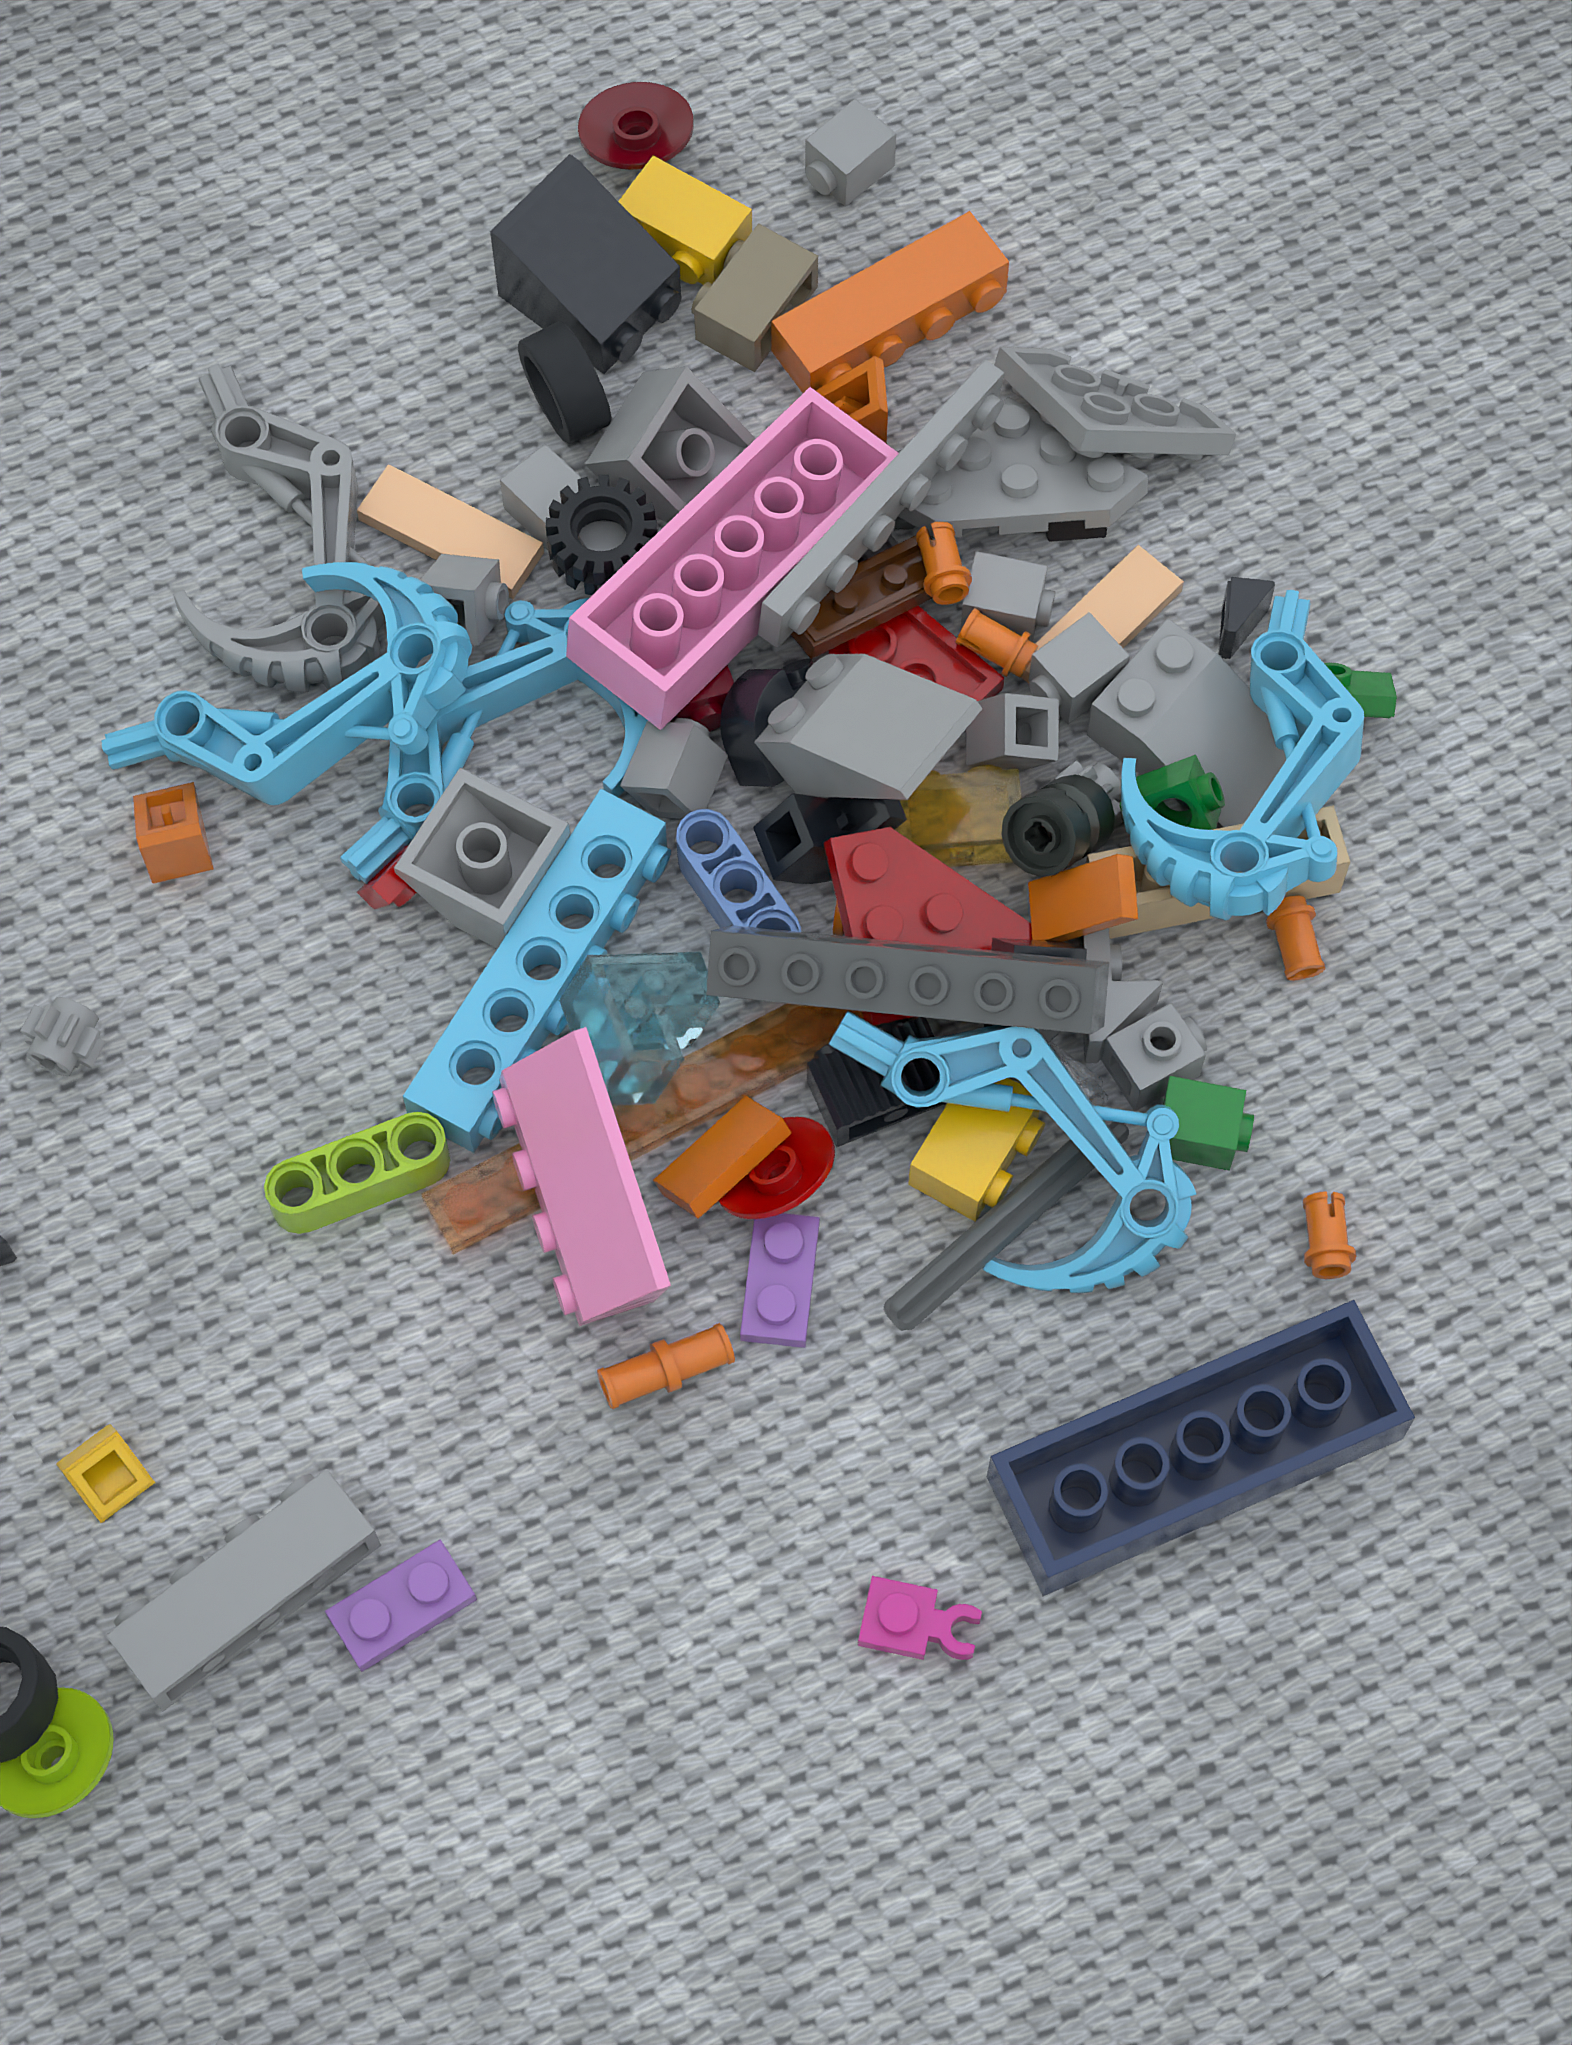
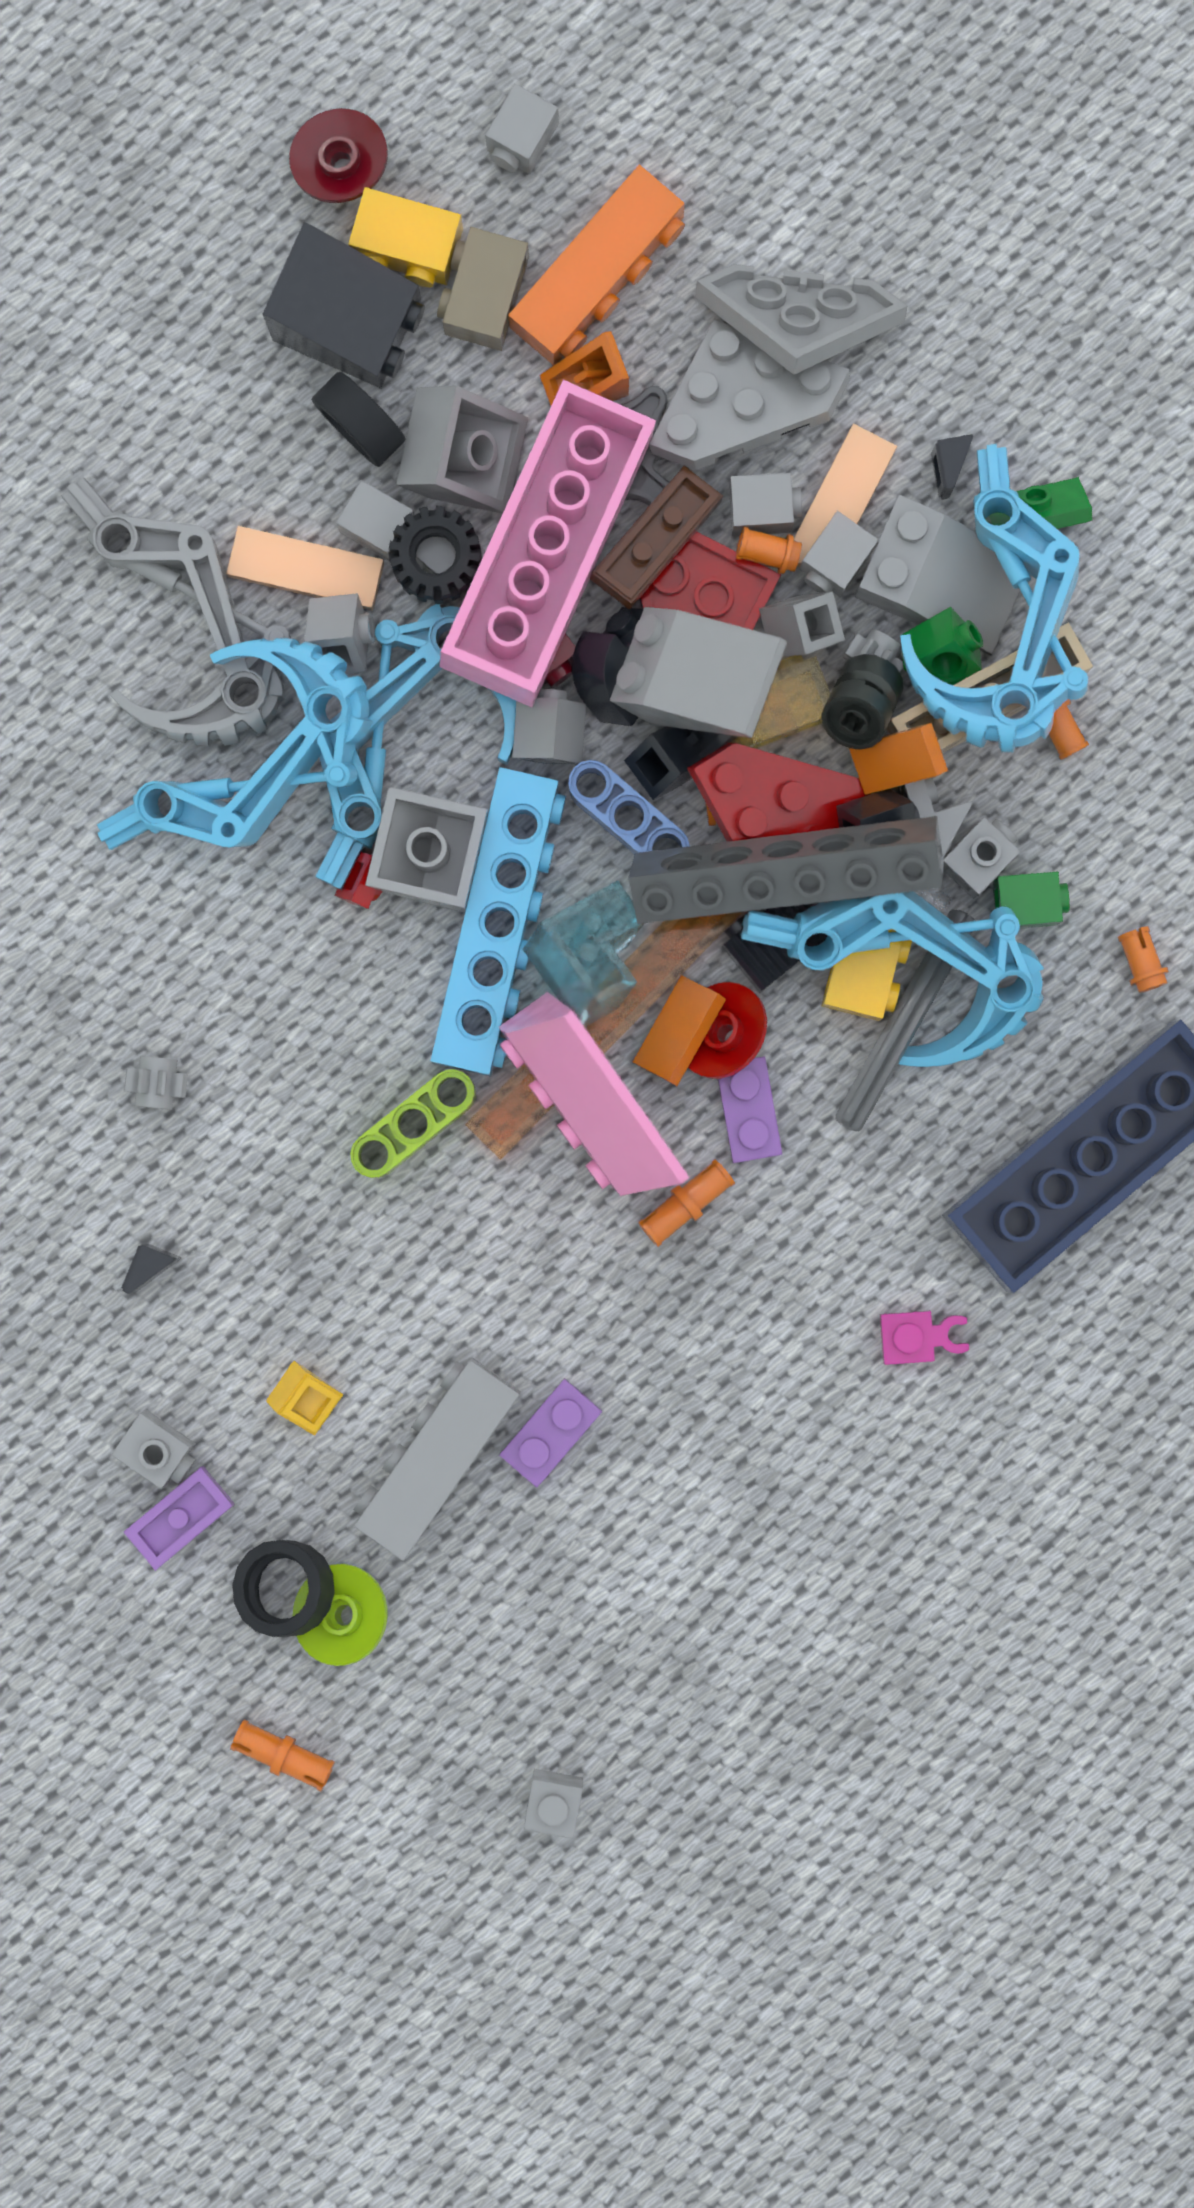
camera: 10 degrees left, 20 degrees up
(171, 833) = (175, 887): orange slope -> none
(872, 516) = (645, 487): light grey plate -> none
(946, 577) = (709, 498): orange pin -> none

